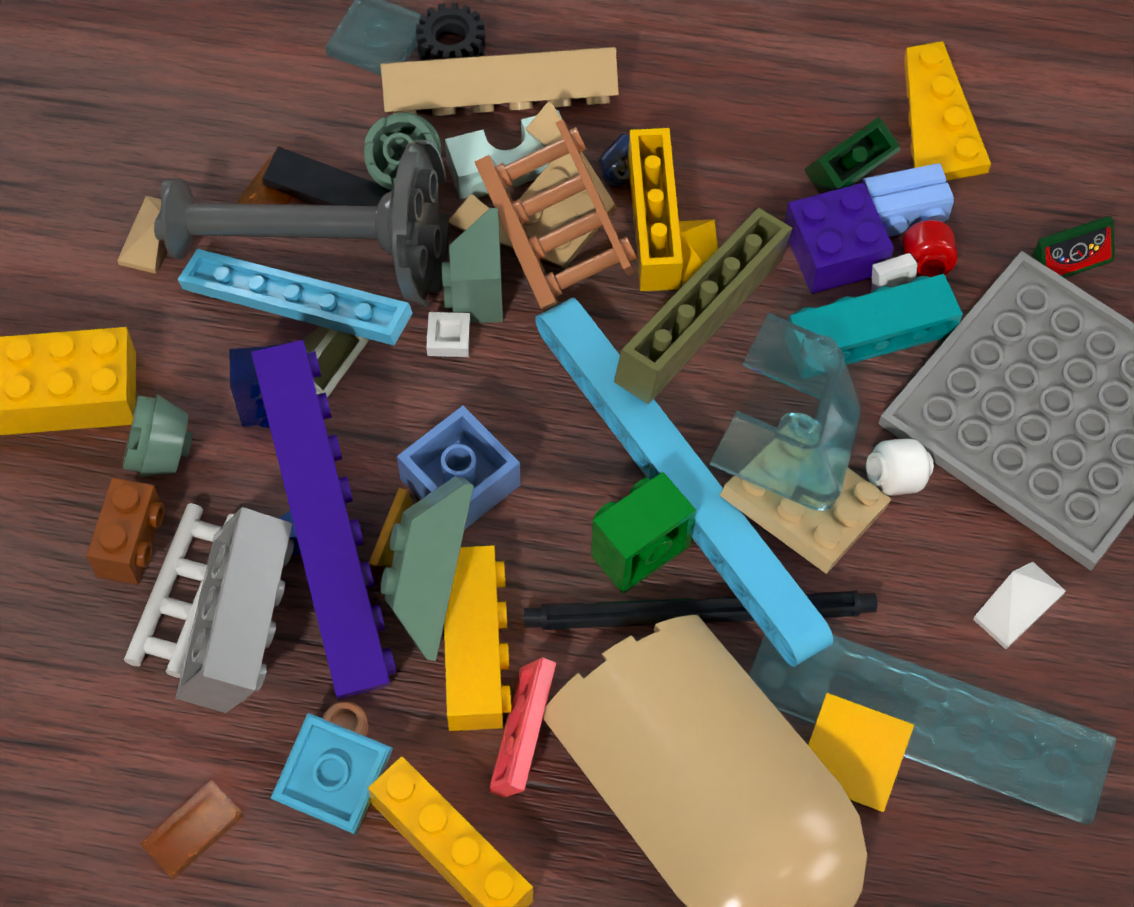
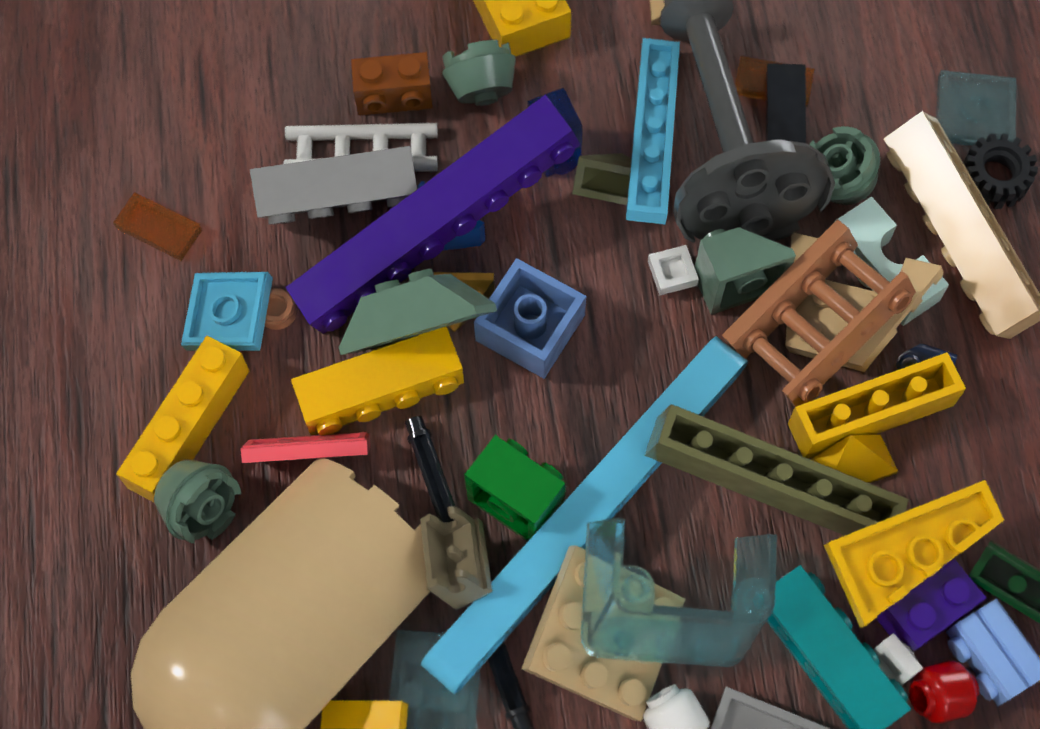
camera: 75 degrees right, 5 degrees up
(548, 849) = (196, 499): none -> sand green cone
(702, 596) = (456, 558): none -> dark tan hinge
(808, 219) = (901, 552): none -> yellow wing

